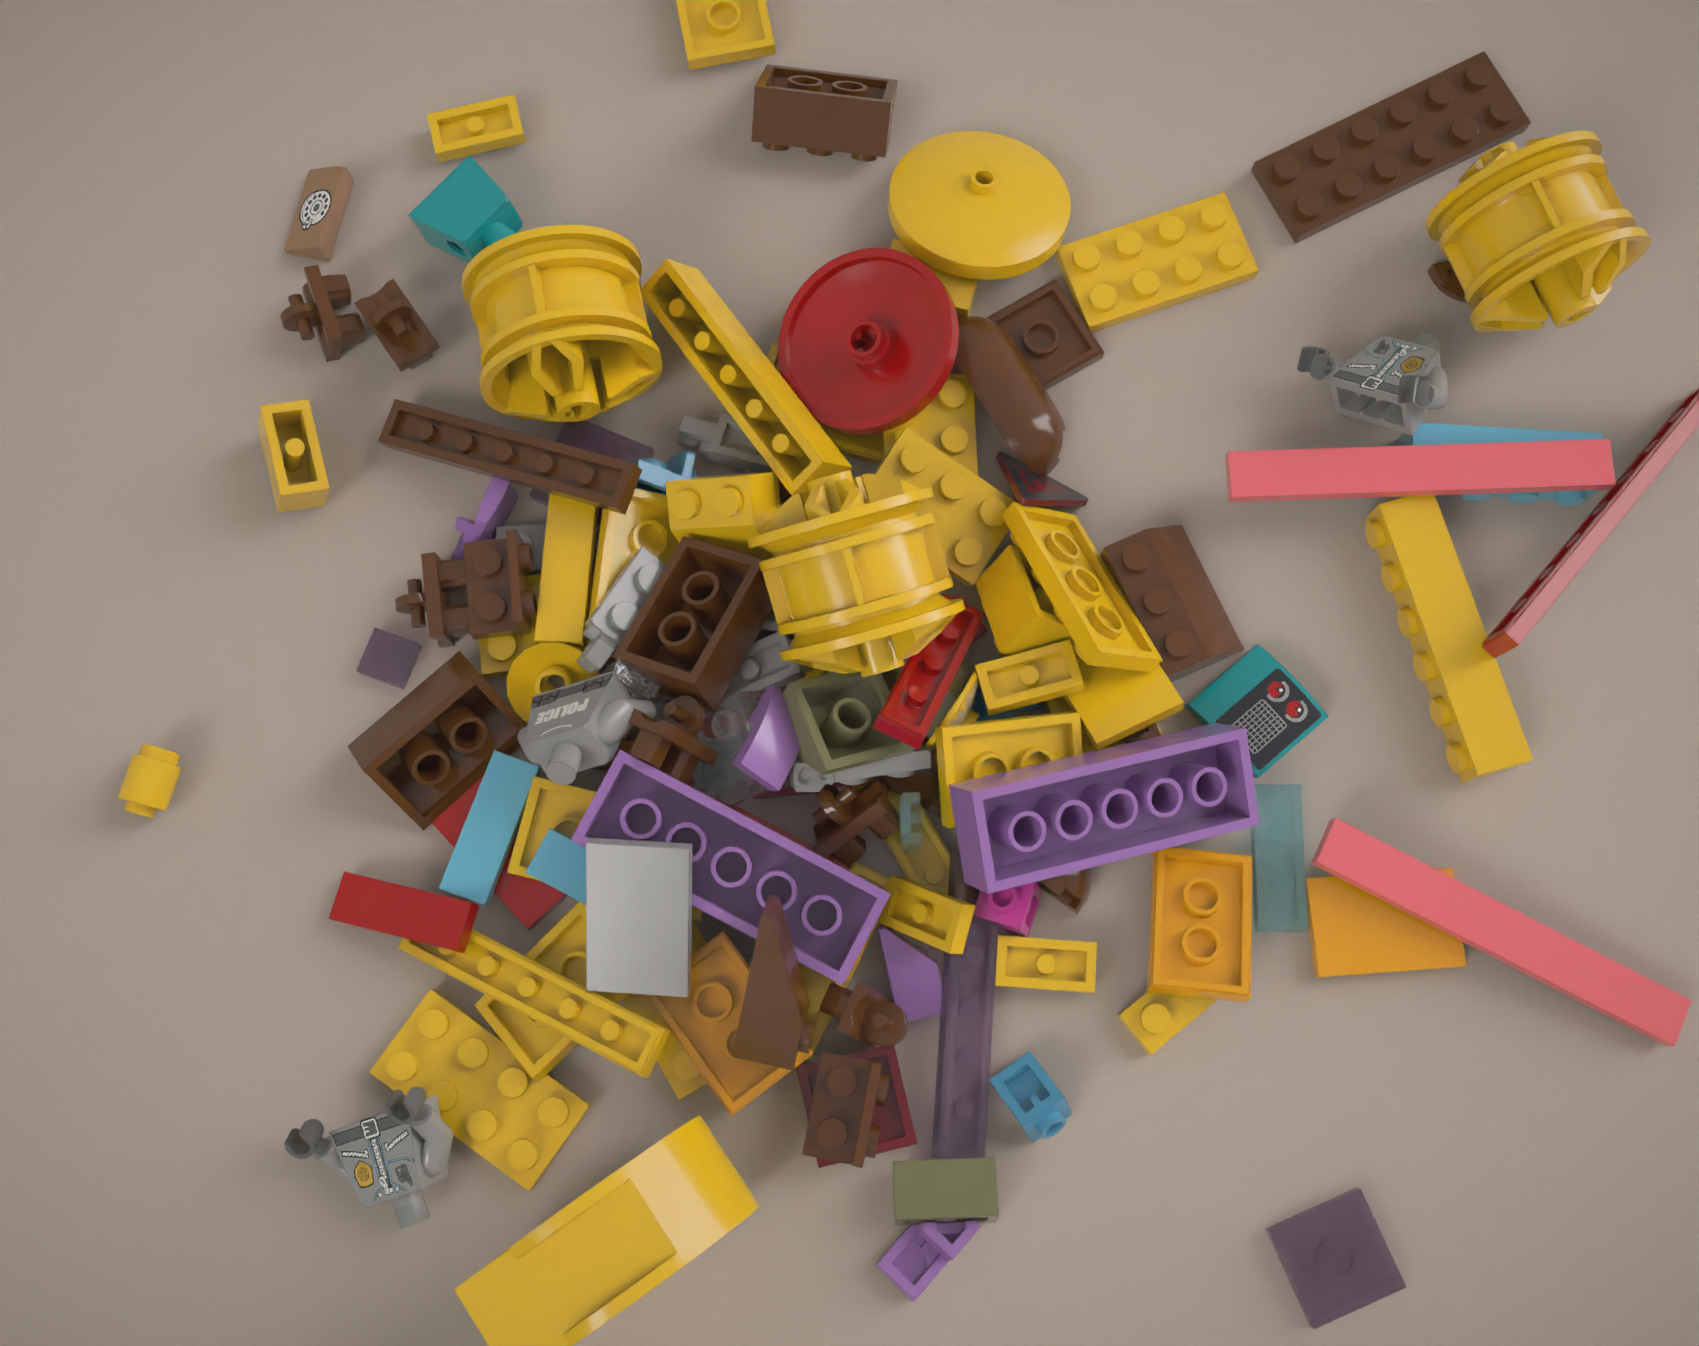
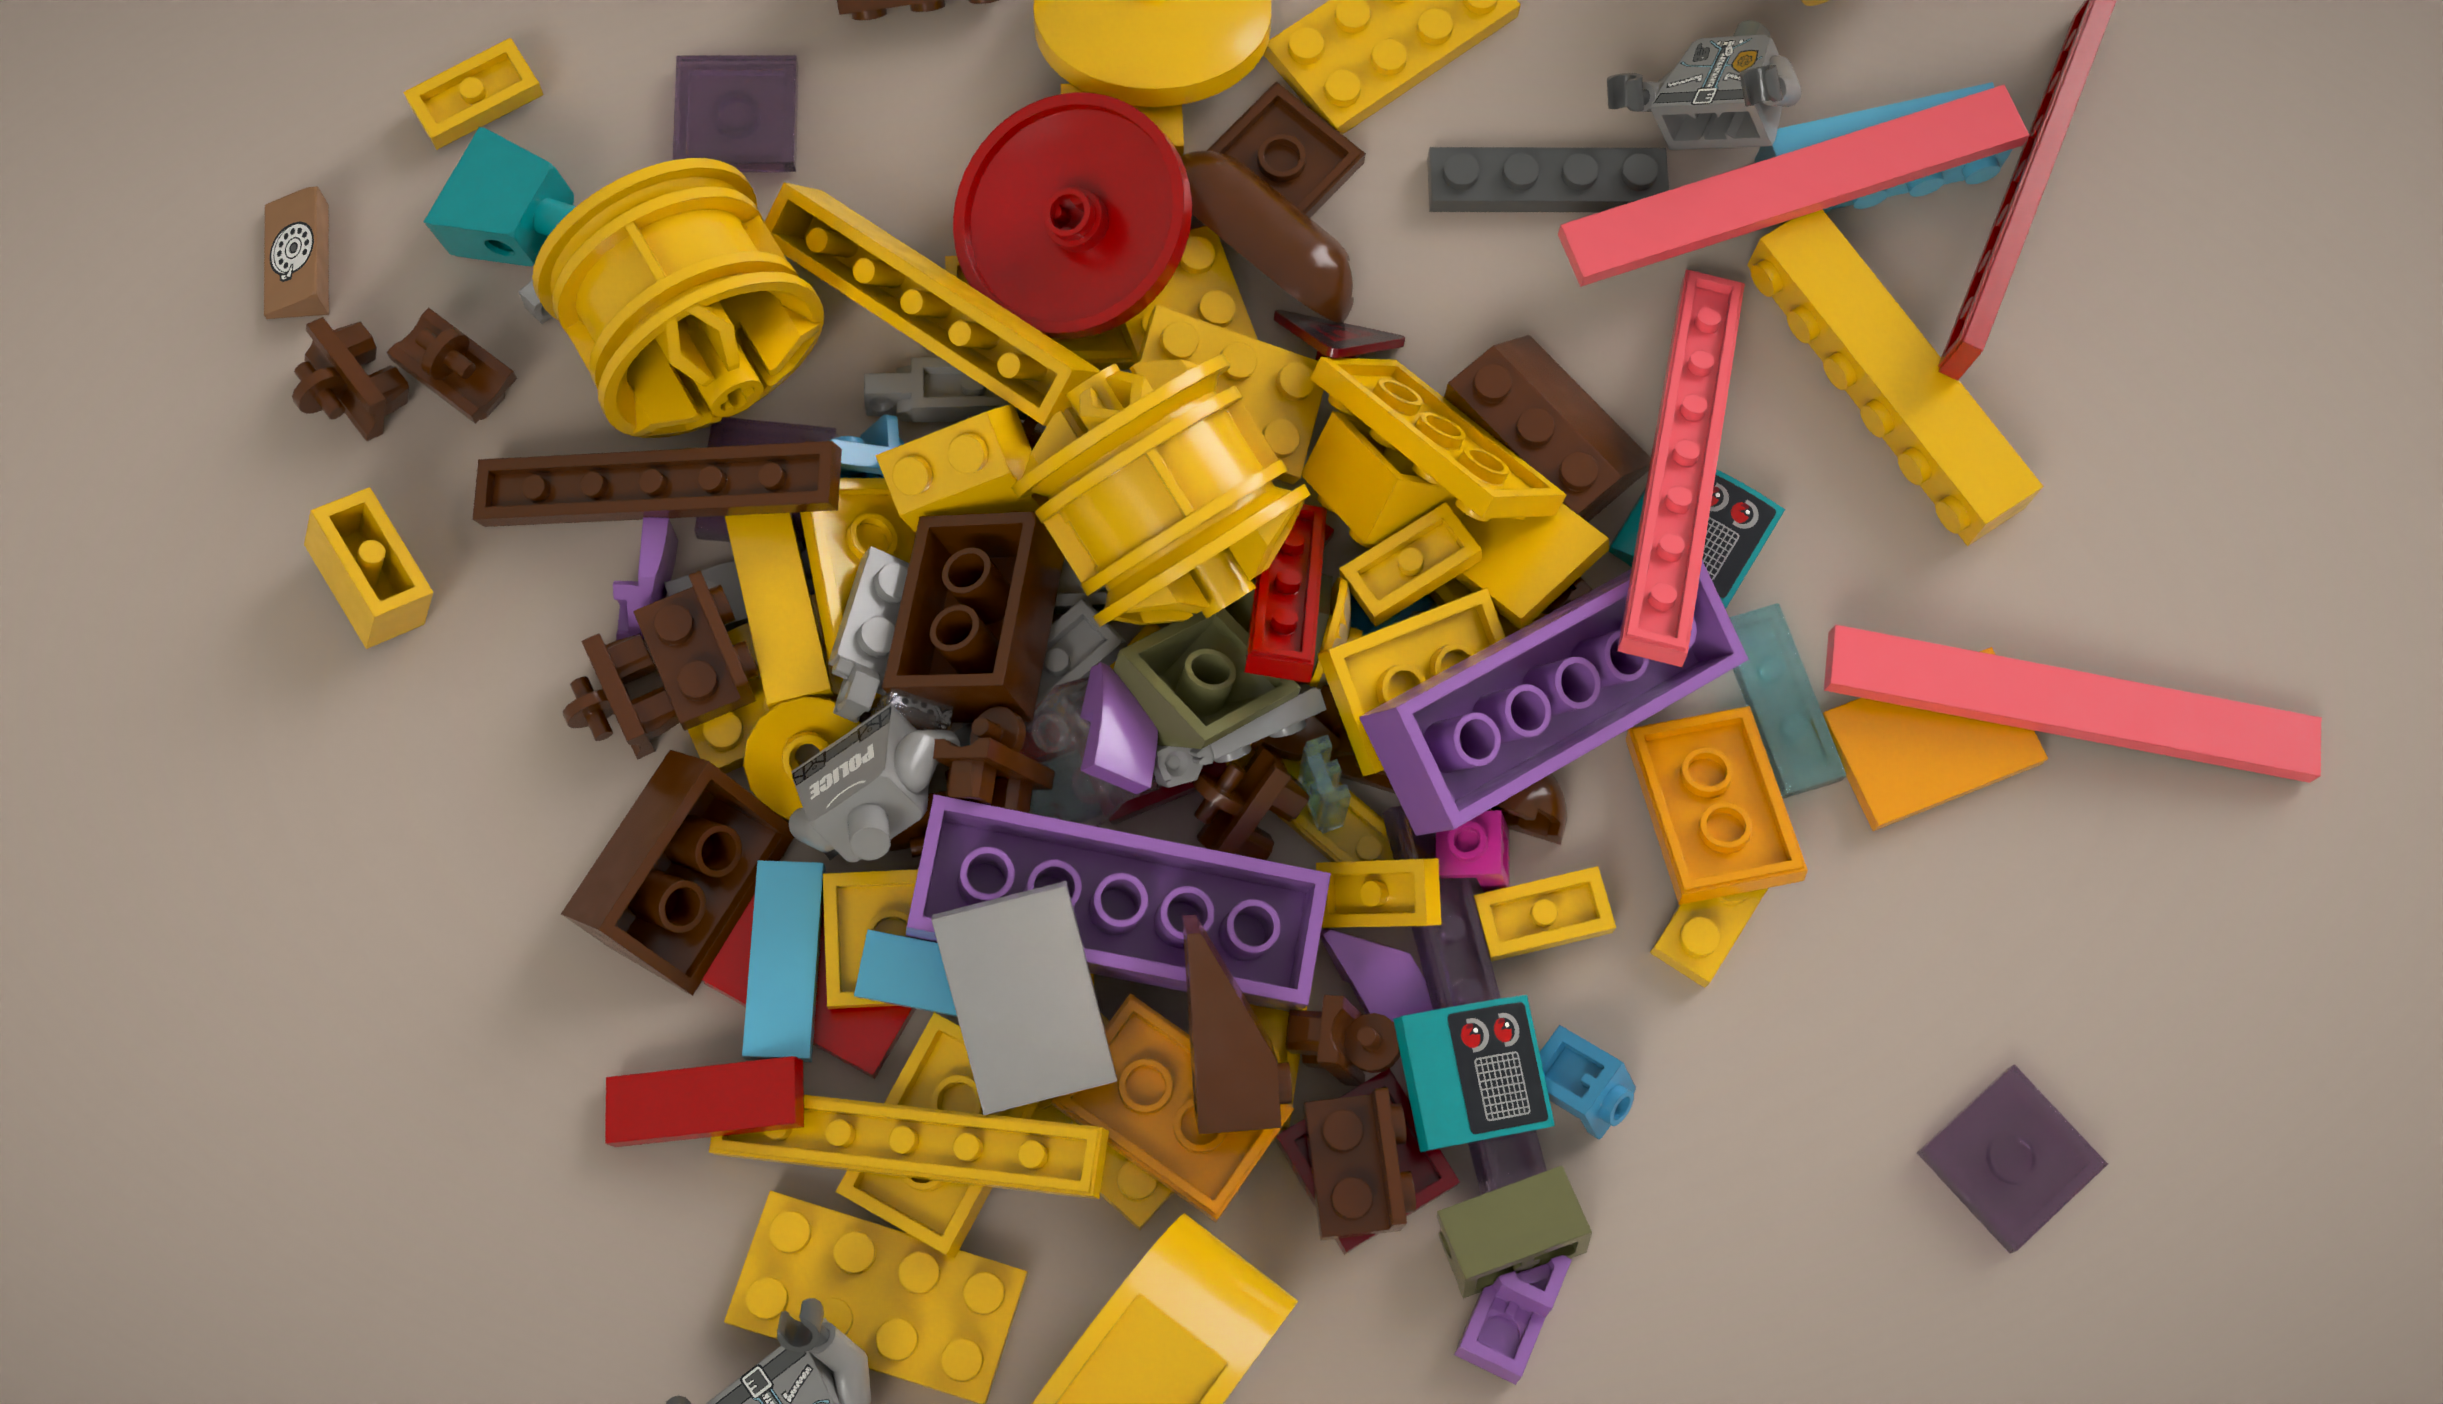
camera: 25 degrees left, 5 degrees down
(150, 780) = (306, 1040): yellow brick -> none
(389, 658) = (575, 791): clear purple tile -> none
(657, 194) = (737, 110): none -> clear purple tile
(951, 1070) = (1473, 1072): none -> slope
(1234, 409) = (1542, 178): none -> dark grey plate
(1256, 668) = (1682, 471): none -> coral tile

